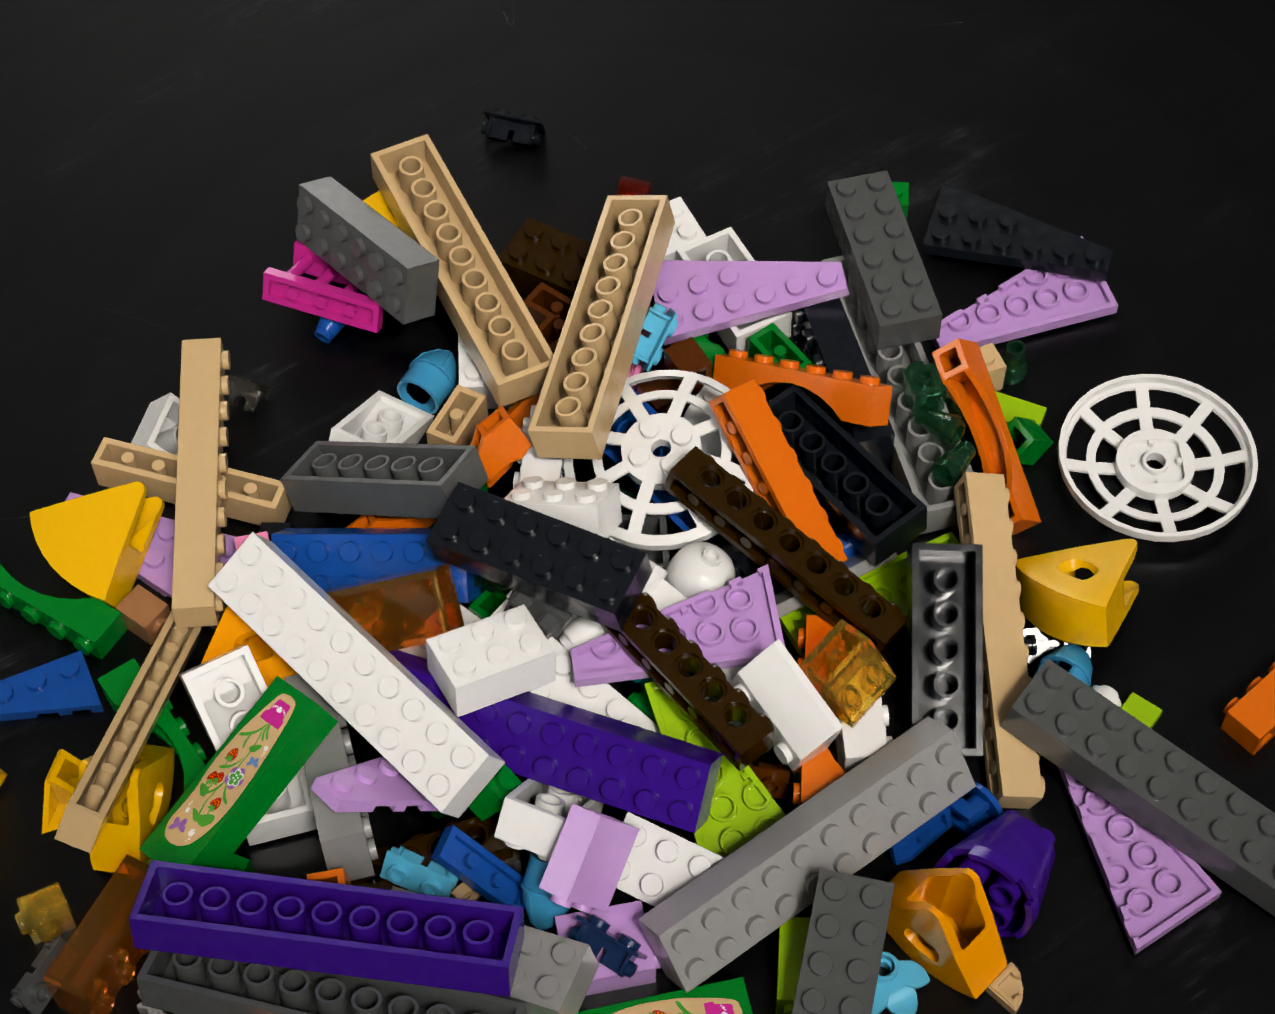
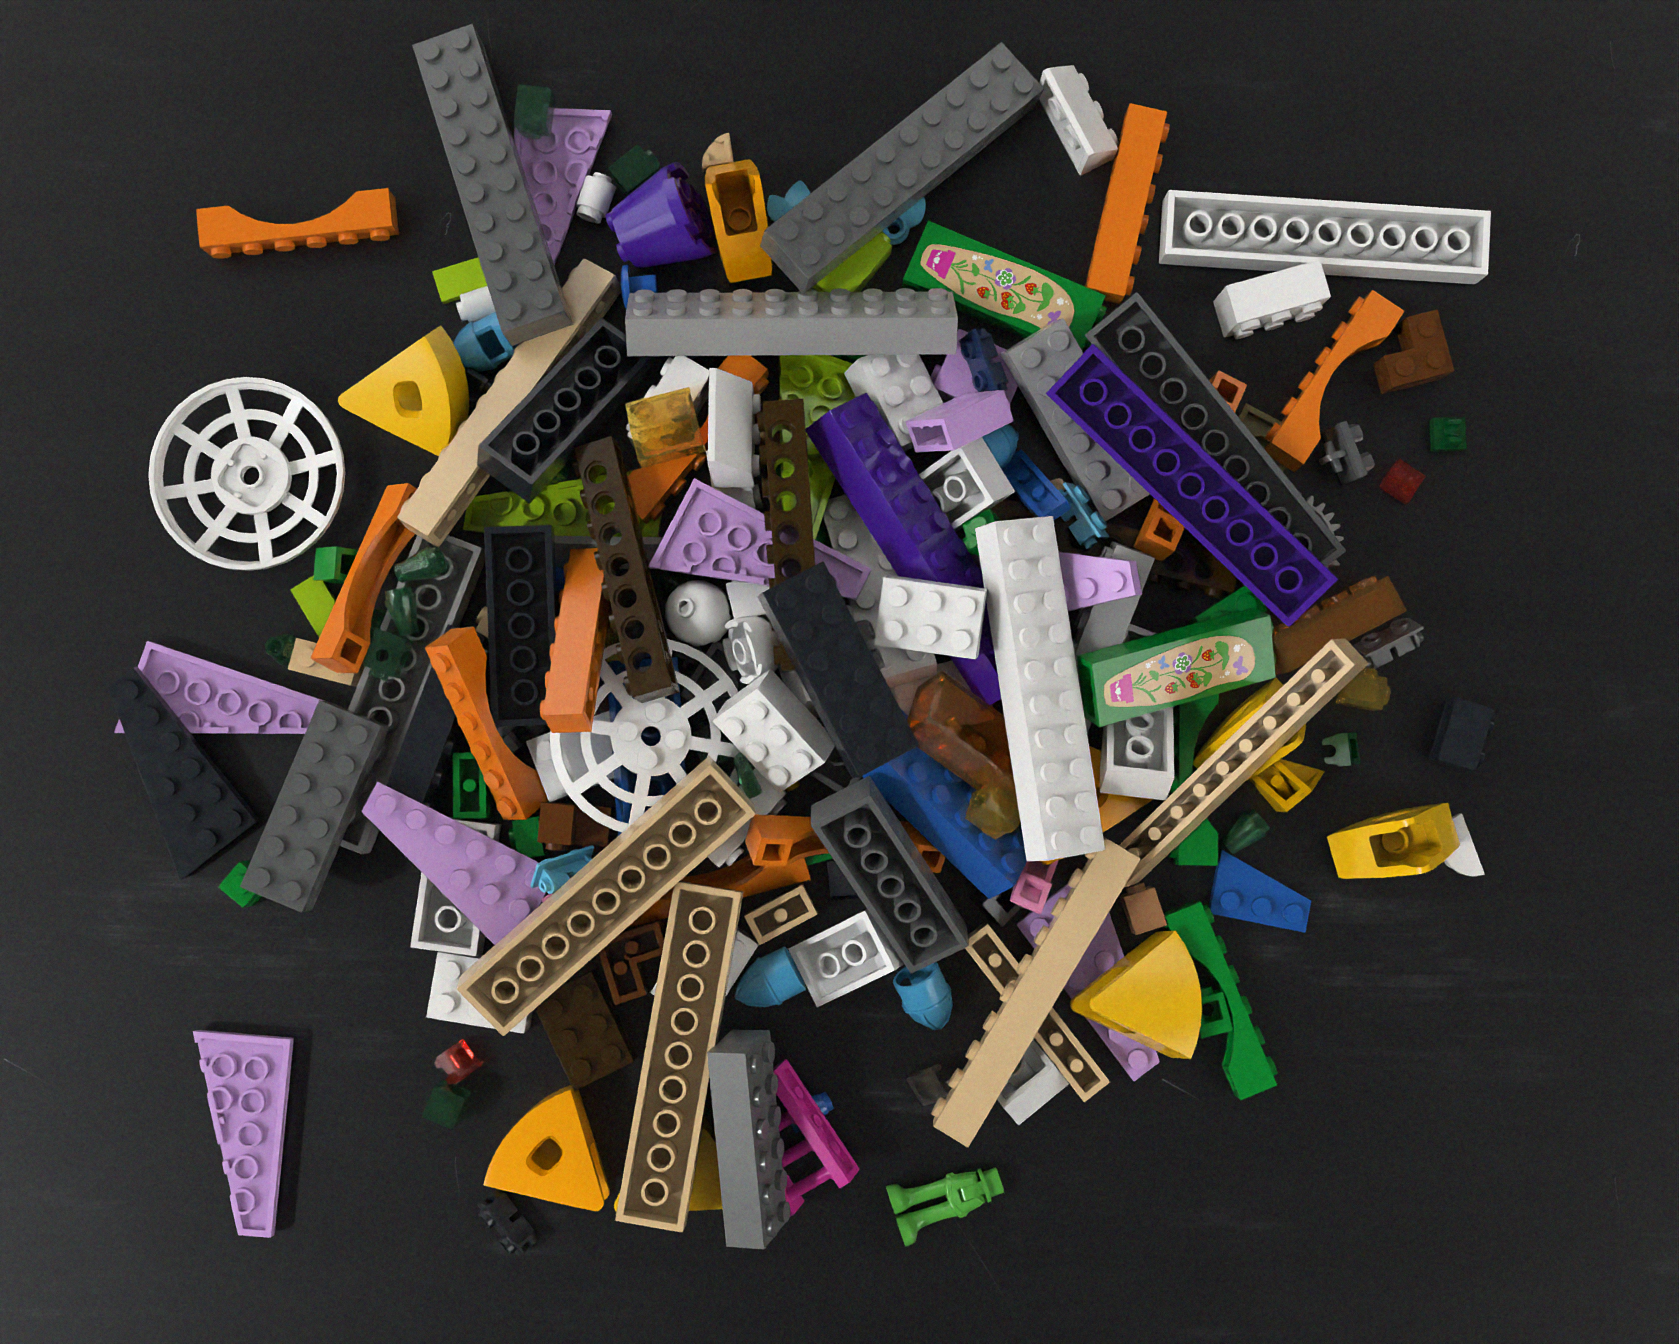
camera: 150 degrees left, 30 degrees up
(32, 854) = (1346, 749): none -> dark green tile
(34, 572) = (1218, 1019): none -> green brick
(87, 732) = (1245, 832): none -> clear green cone
(166, 336) = (963, 1194): none -> bright green piece
(290, 438) = (927, 998): none -> dark azure helmet
(329, 568) = (993, 810): none -> clear yellow brick
(510, 175) = (552, 1155): none -> light orange piece
(554, 470) = (746, 776): none -> clear green arm
(618, 161) = (446, 1104): none -> clear green brick
(758, 84) = (248, 1109): none -> lavender wing
(1067, 911) = (633, 169): none -> clear green brick
(1081, 864) = (595, 197): none -> white brick
(1197, 884) = (534, 111): none -> clear green brick

